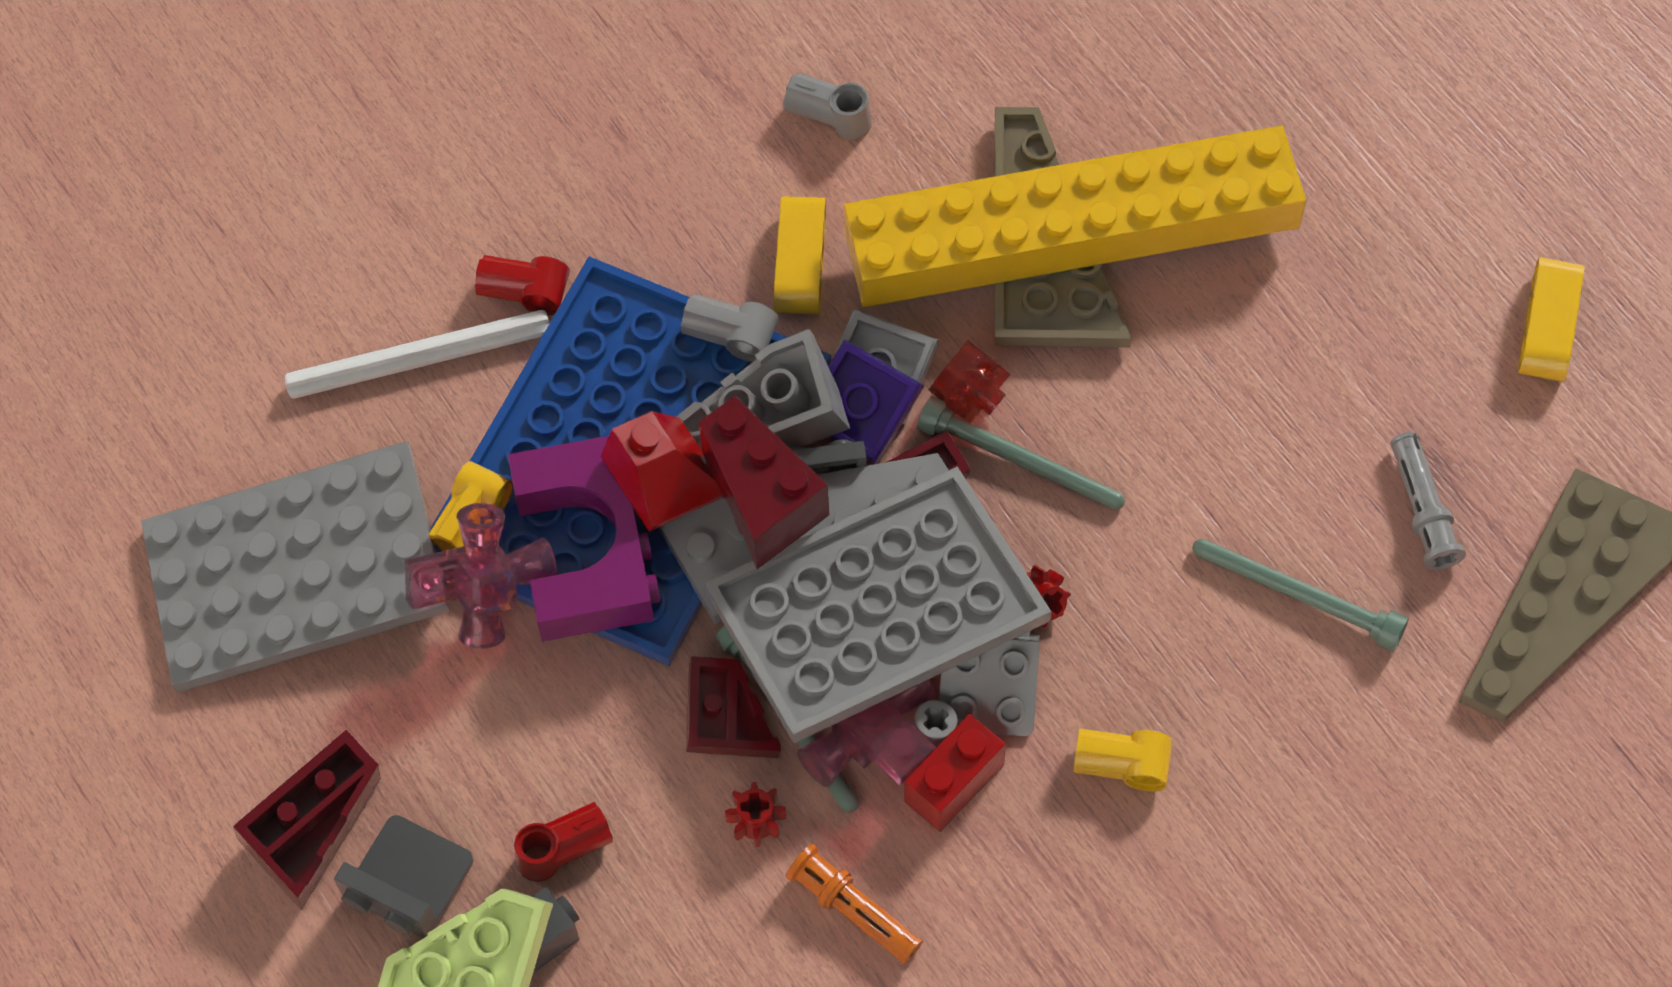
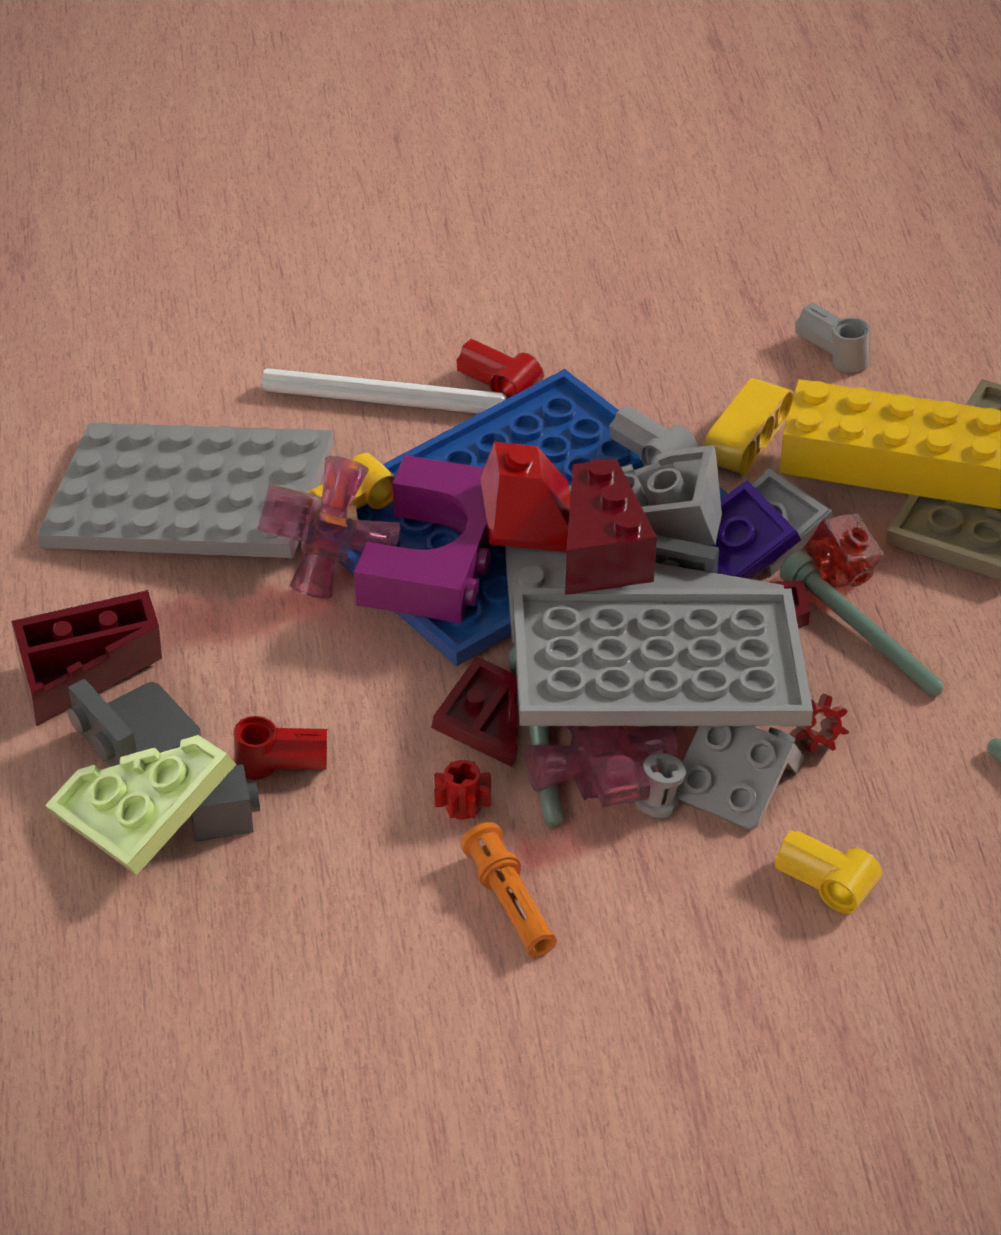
camera: 25 degrees right, 20 degrees down
(954, 772) = (661, 822): red brick -> none

